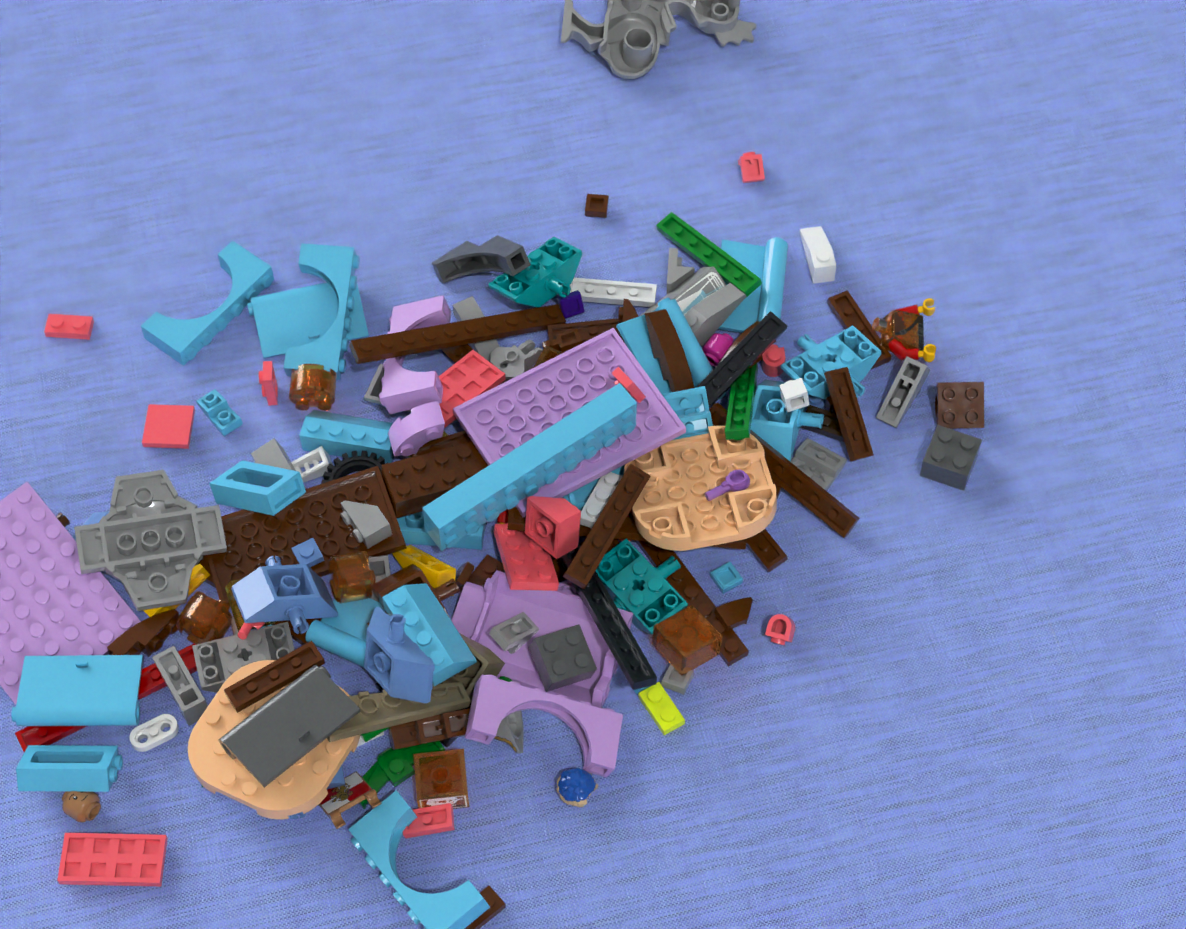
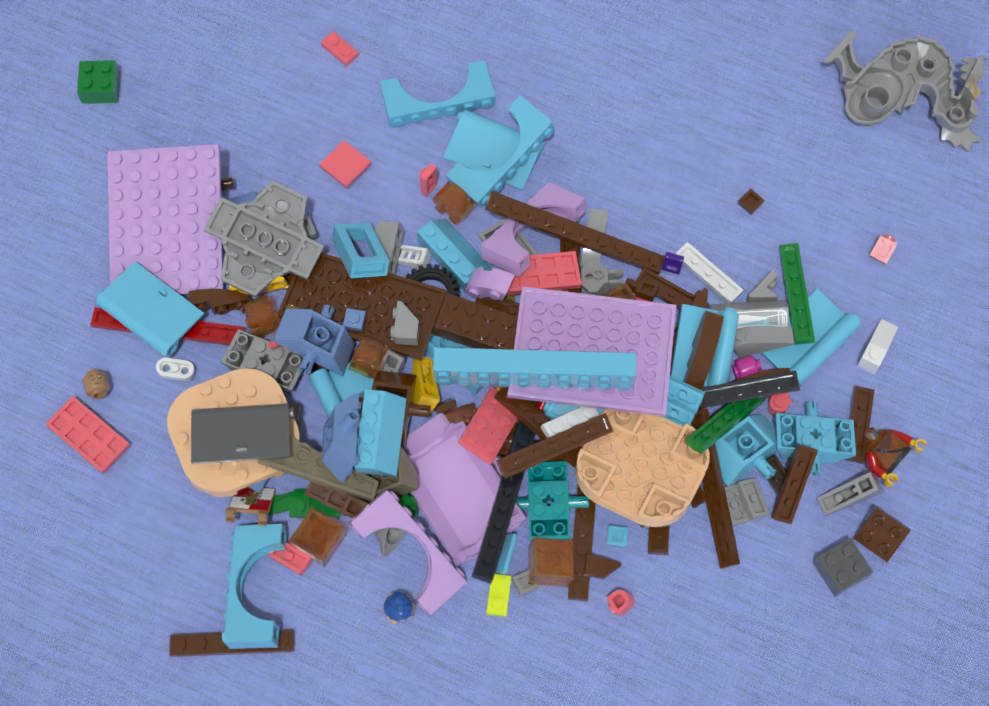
camera: 35 degrees right, 10 degrees up
(68, 768) = (115, 376): medium azure piece -> none
(180, 684) = (212, 350): light grey slope -> none
(219, 412) = (385, 176): medium azure slope -> none
(273, 676) = (260, 391): reddish brown plate -> none
(494, 255) = (643, 190): dark grey arch -> none
(514, 632) = (442, 471): light grey slope -> none
(549, 274) = (665, 226): teal slope -> none
(553, 524) = (520, 418): coral slope -> none
(562, 658) = (457, 514): dark grey brick -> none
(628, 384) = (646, 356): coral plate -> none
(735, 481) = (667, 479): medium lavender plate -> none
(794, 395) = (763, 443): white plate -> none

